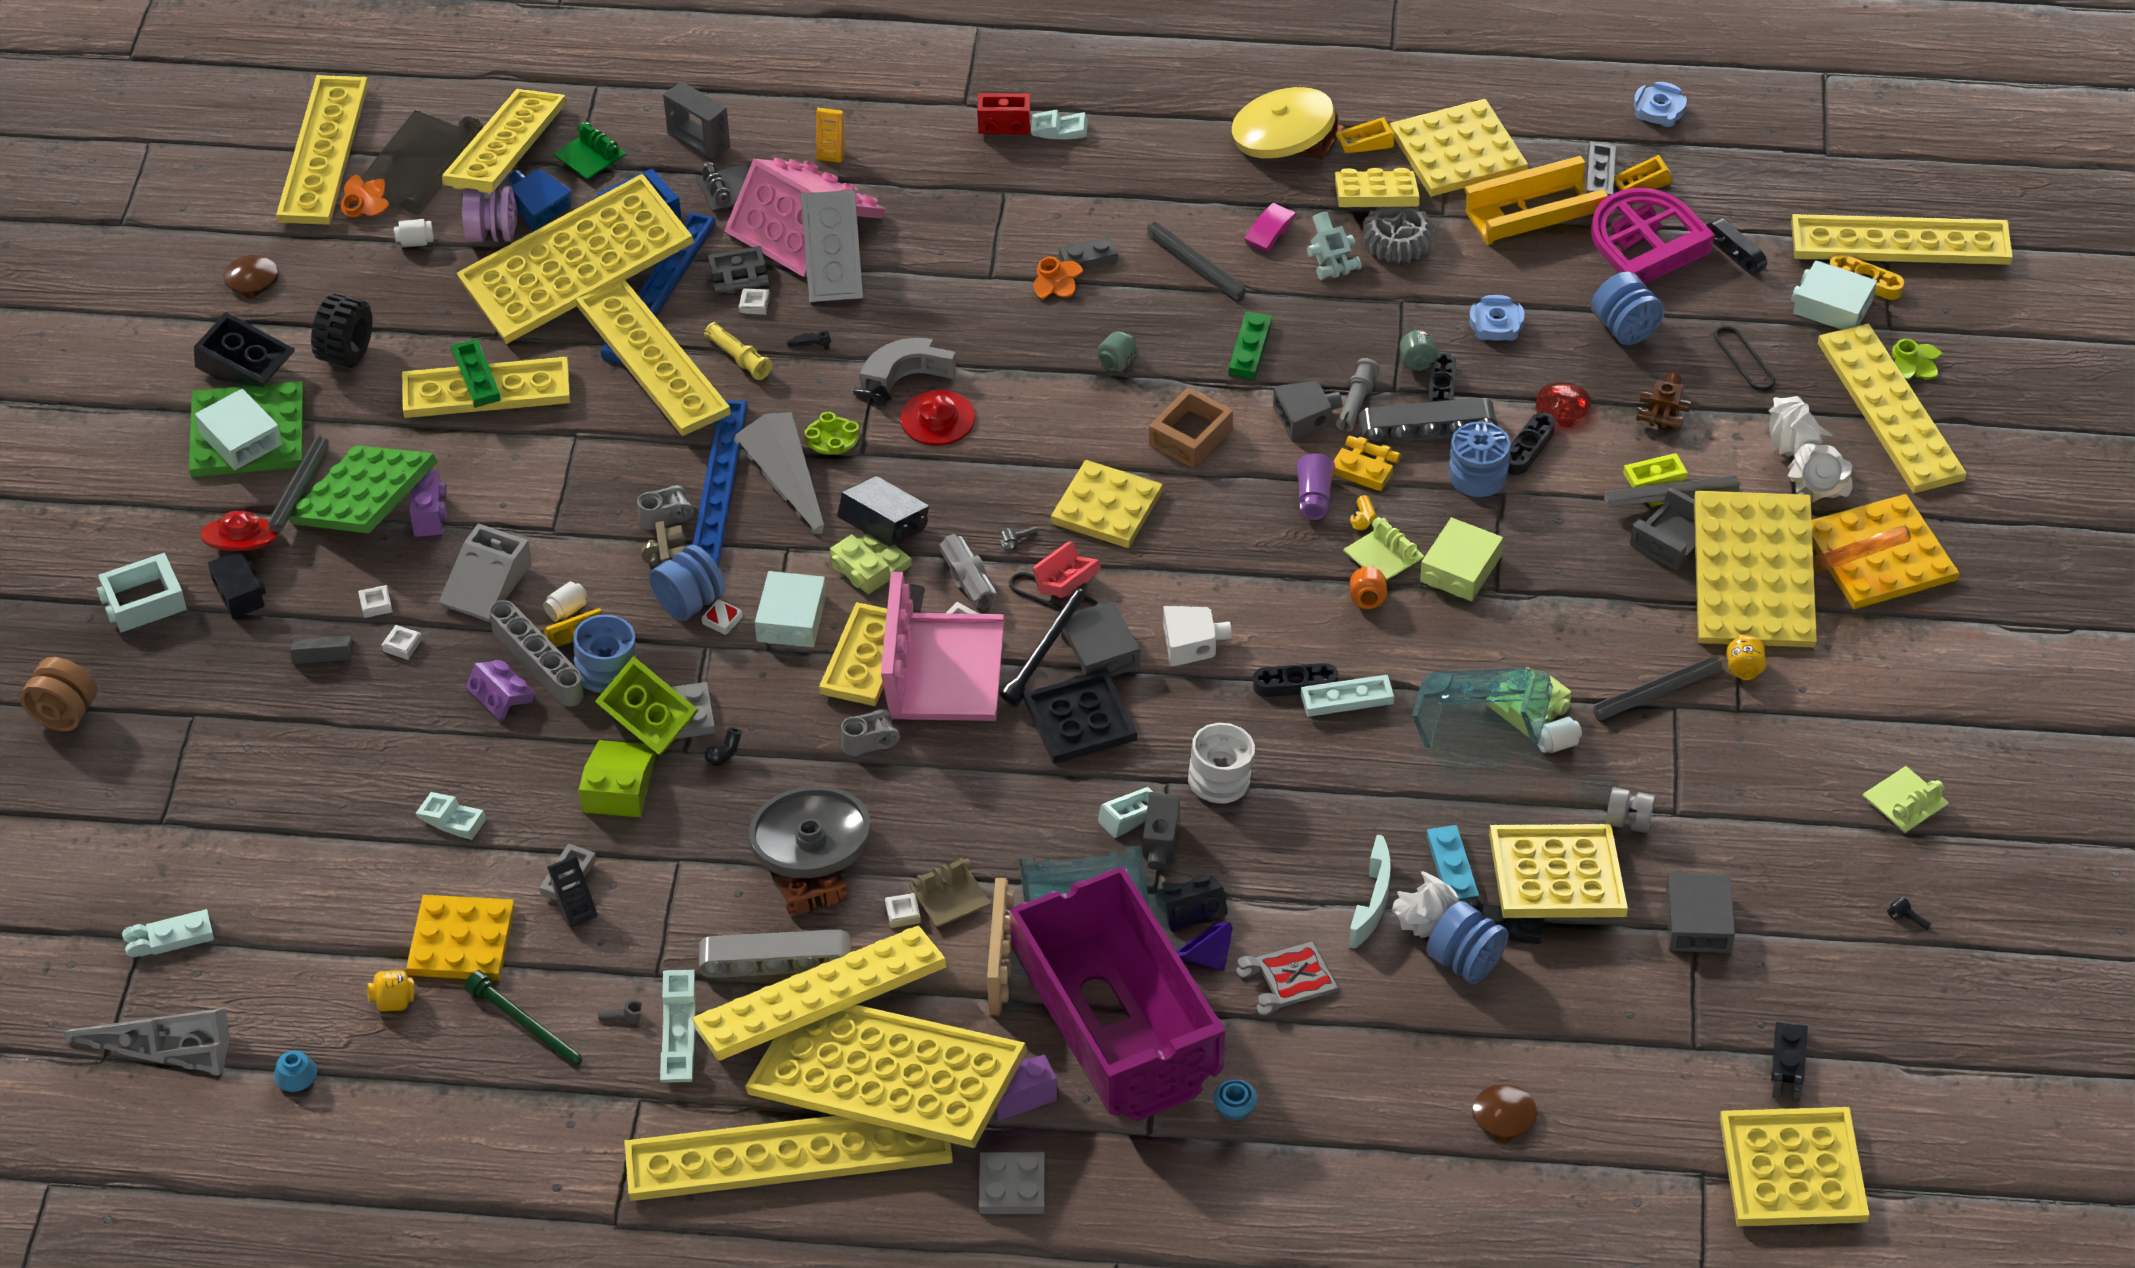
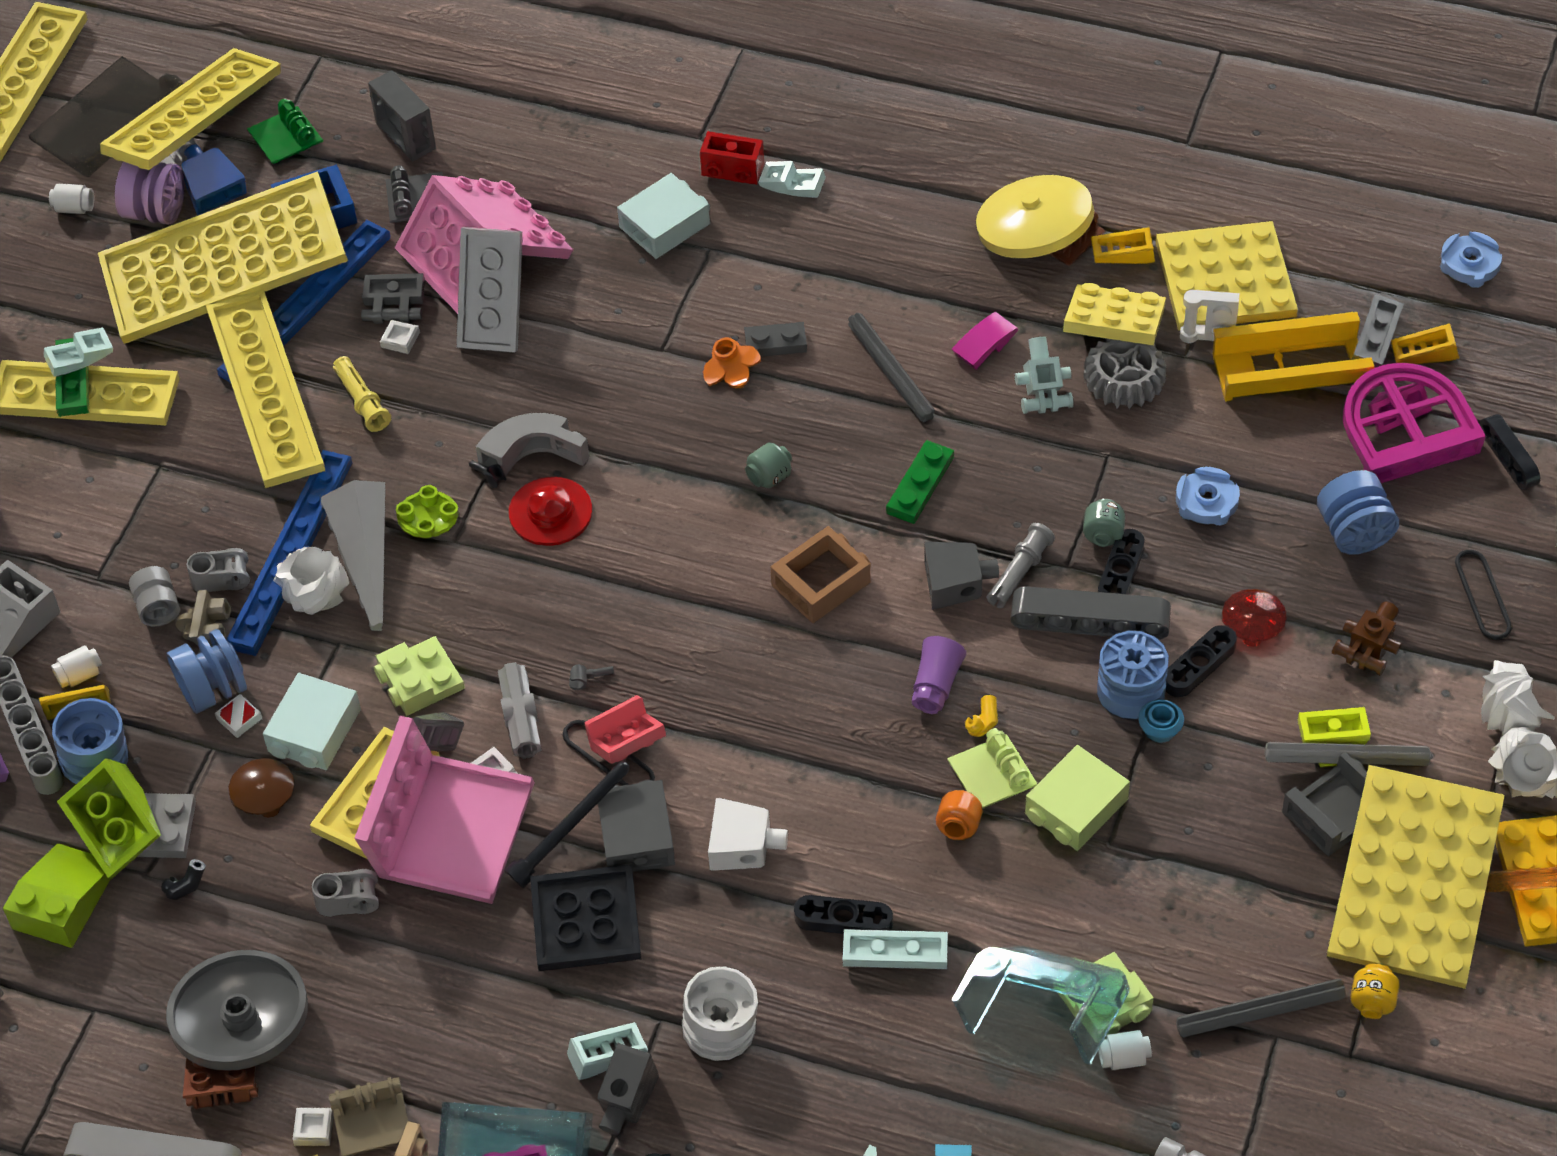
camera: 15 degrees right, 5 degrees up
(367, 196) = (37, 148): orange plate -> none
(481, 349) = (85, 350): none -> light aqua slope
(615, 535) = (154, 596): none -> light grey wheel
(752, 499) = (311, 580): none -> white hair
(763, 667) = (261, 787): none -> reddish brown dish
(805, 339) = (439, 392): black piece -> none
(830, 150) = (537, 157): yellow slope -> none
(883, 511) = (447, 620): black brick -> none
(957, 169) = (664, 215): none -> light aqua brick
(1106, 504) = (700, 651): light yellow plate -> none
(1363, 469) = (1001, 660): yellow plate -> none
(1467, 172) = (1221, 313): none -> white plate
(1512, 490) = (1161, 720): none -> dark azure cone

